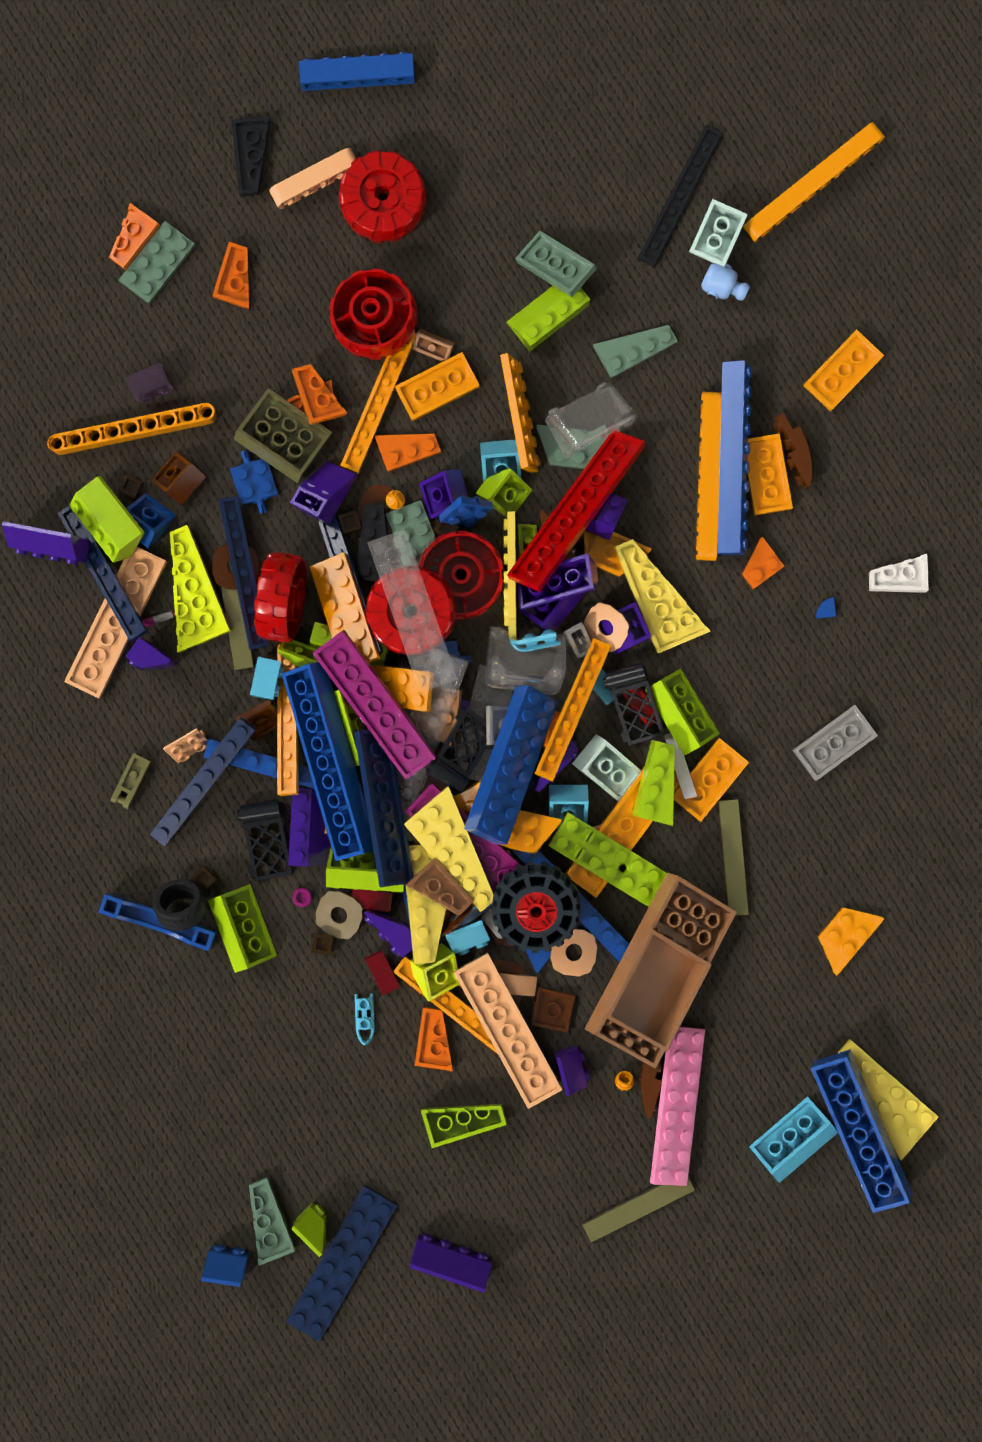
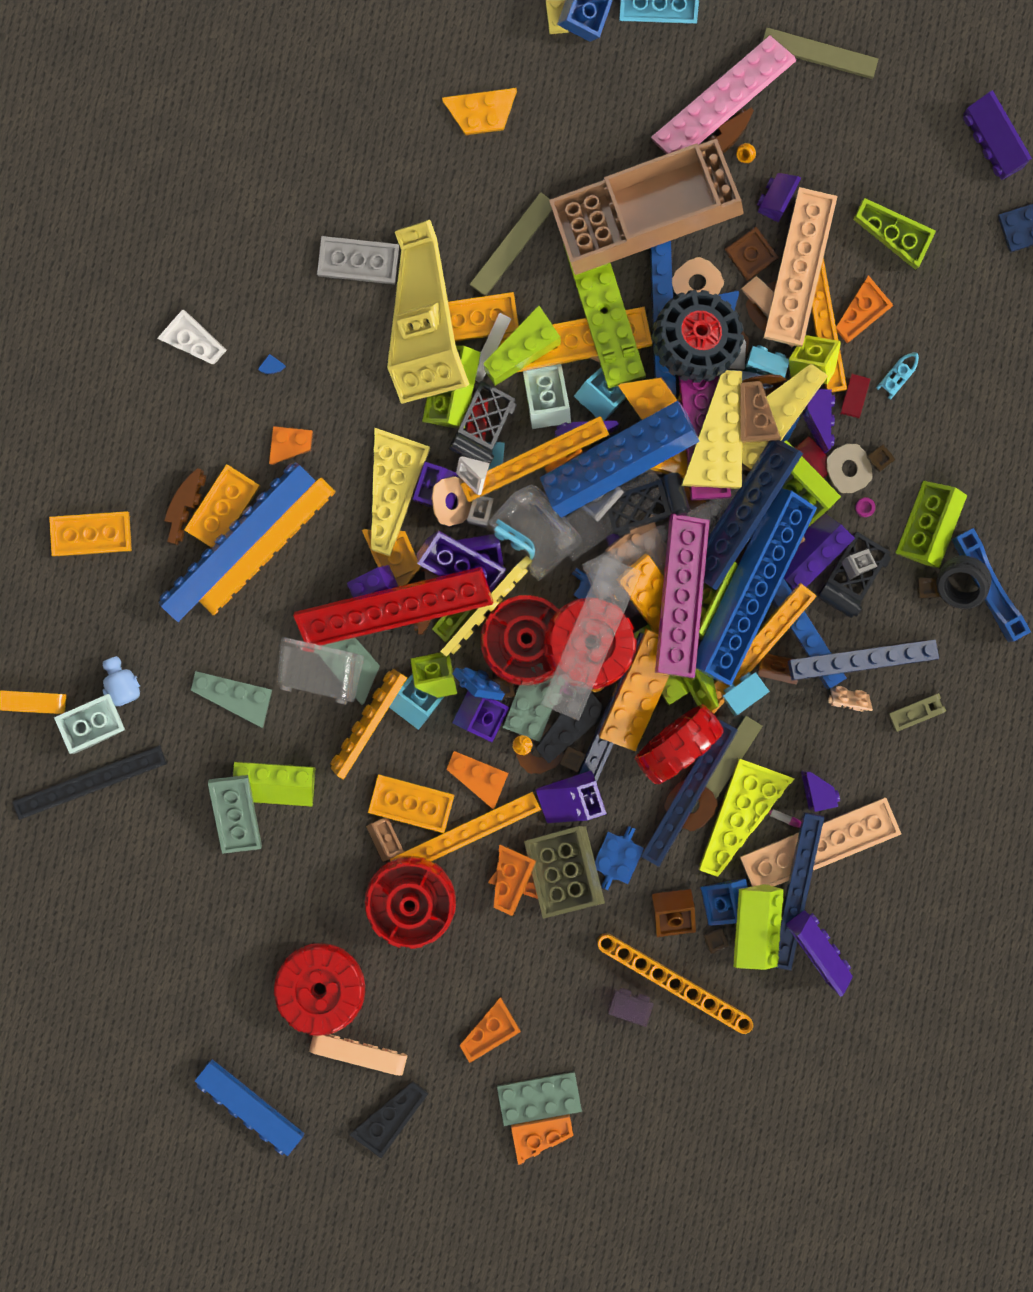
camera: 135 degrees left, 0 degrees up
(269, 850) = (858, 563): none -> light grey slope
(608, 660) = (472, 473): none -> white slope
(725, 715) = (423, 357): none -> light yellow wing

